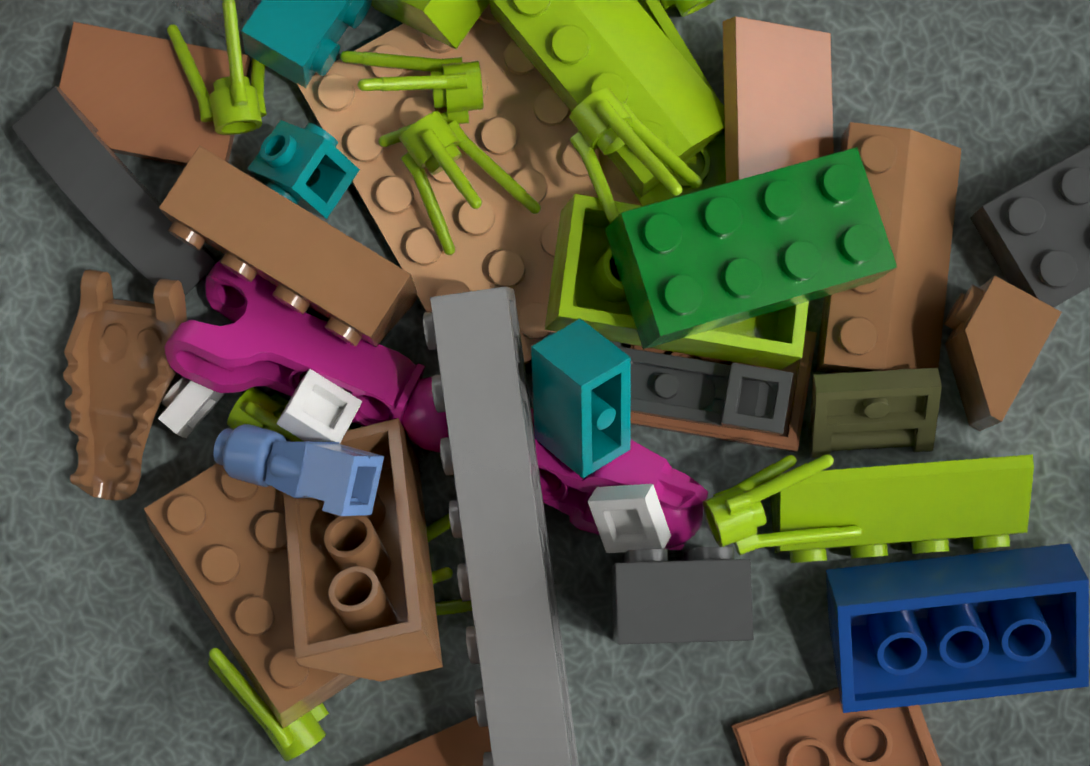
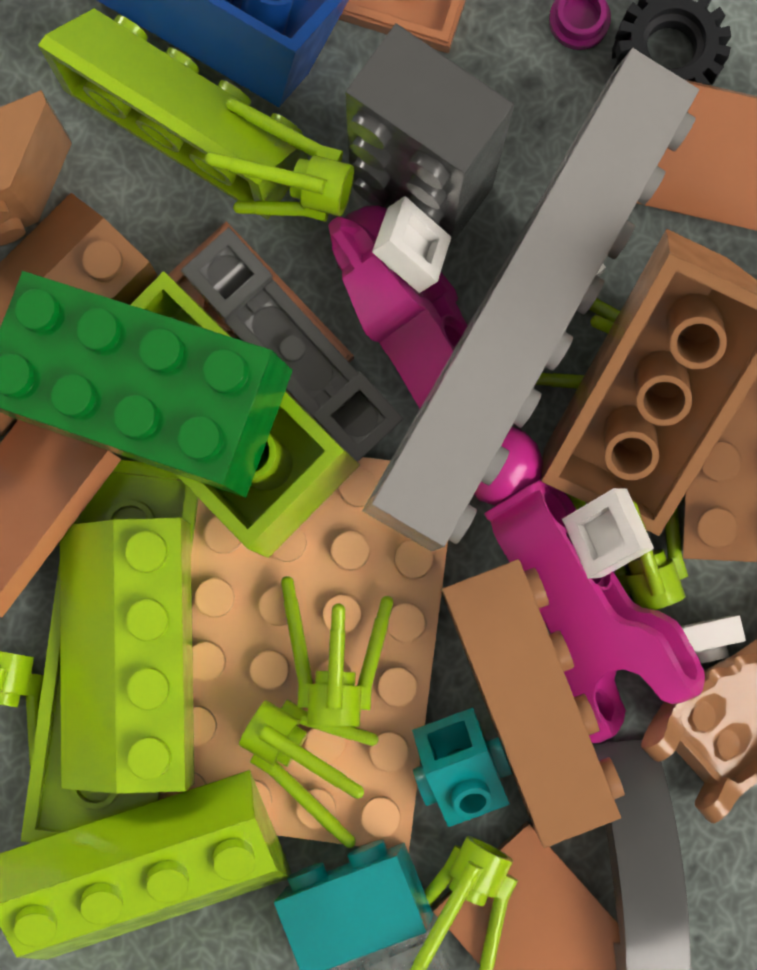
camera: 150 degrees left, 0 degrees up
(305, 469) = (663, 486): medium blue piece -> none
(581, 397) = (375, 371): teal brick -> none
(609, 126) = (167, 584): lime plant -> none
(874, 410) = (137, 197): olive plate -> none

